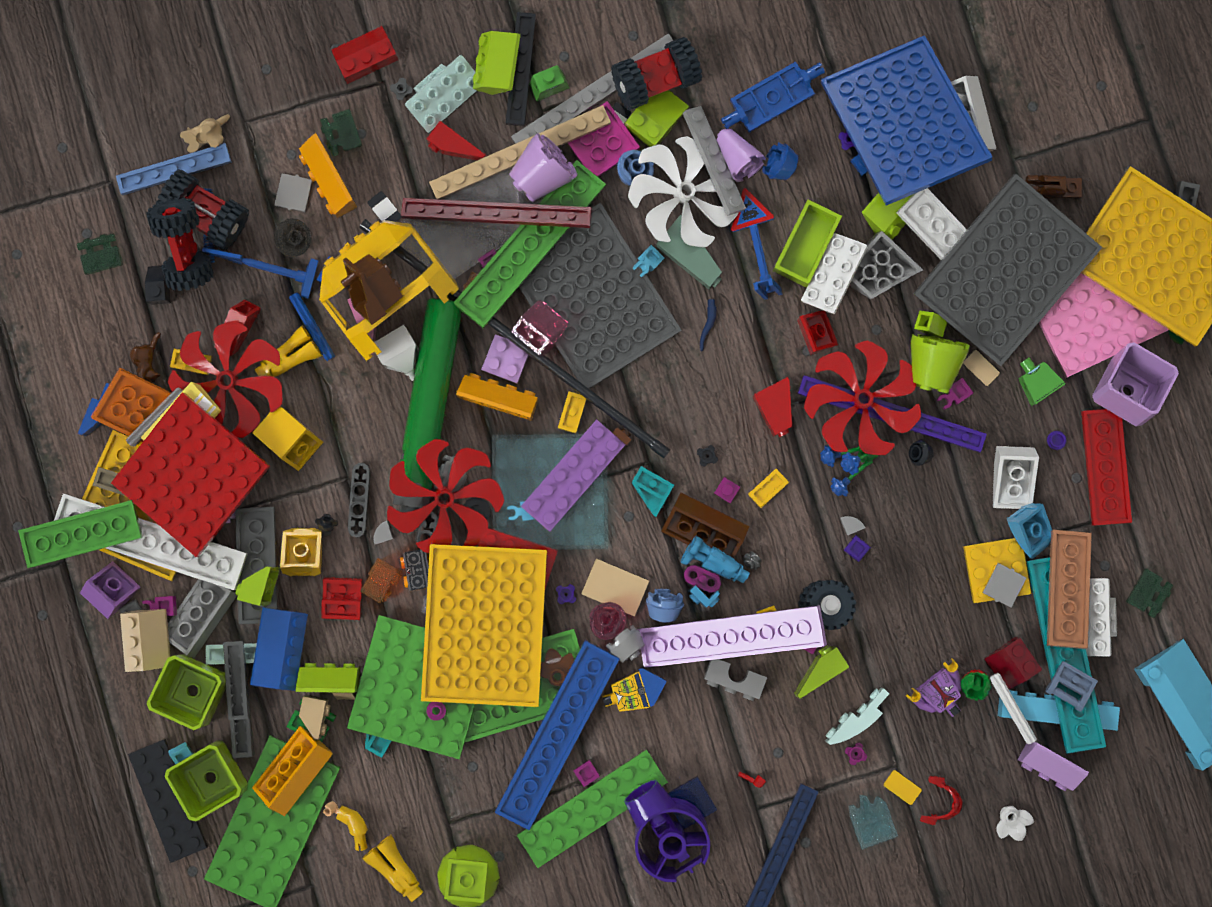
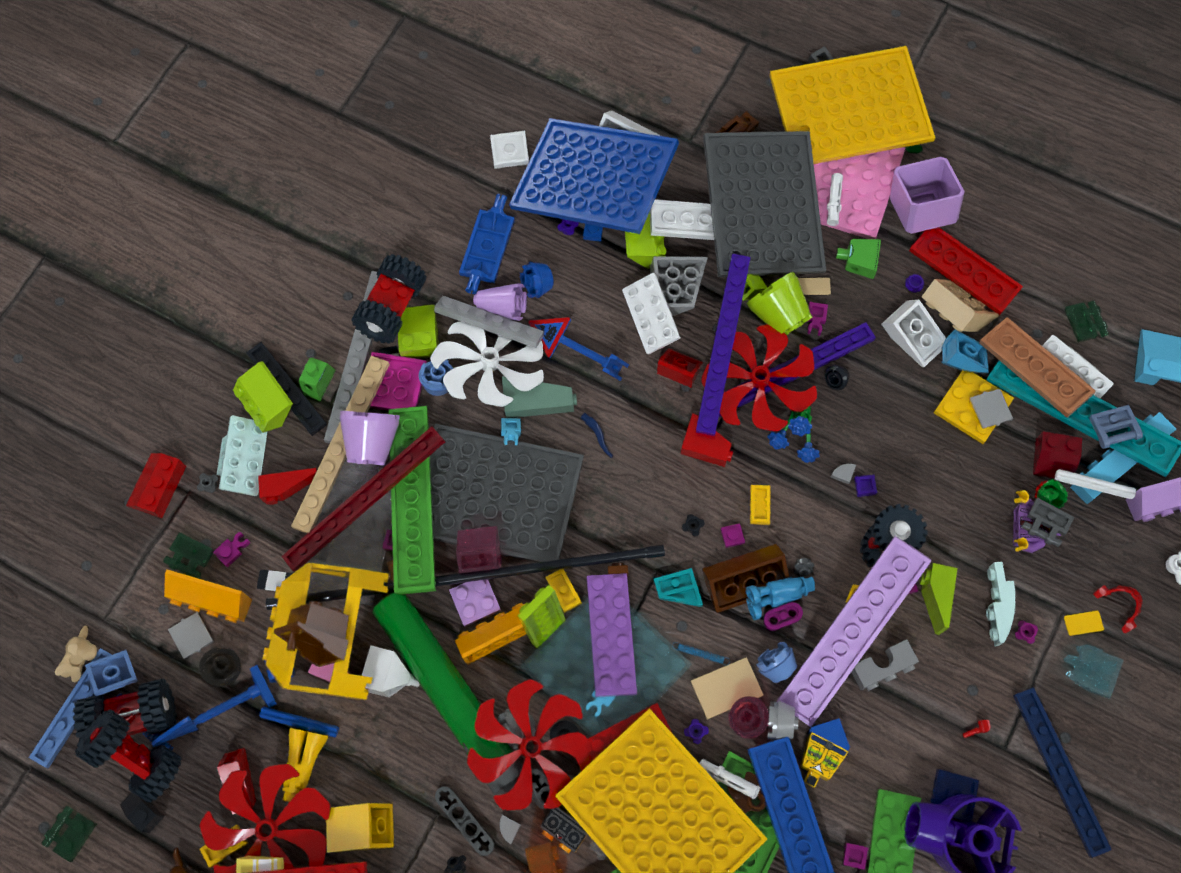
camera: 40 degrees left, 15 degrees down
(217, 170) = (111, 673): none -> medium blue slope
(371, 156) = (229, 551): none -> magenta plate
(532, 421) = (541, 616): none -> lime plate
(551, 638) = (719, 774): none -> white pin
(621, 544) = (680, 646): none -> dark azure piece
(699, 597) = (797, 629): dark azure bracket -> none
(807, 243) = (611, 314): lime piece -> none
(862, 348) = (723, 345): none -> dark purple plate
(869, 31) = (509, 149): none -> white tile
(955, 699) = (1049, 516): none -> dark grey plate
(1061, 322) = (834, 206): none -> white pin
(1066, 489) = (957, 306): none -> tan wedge

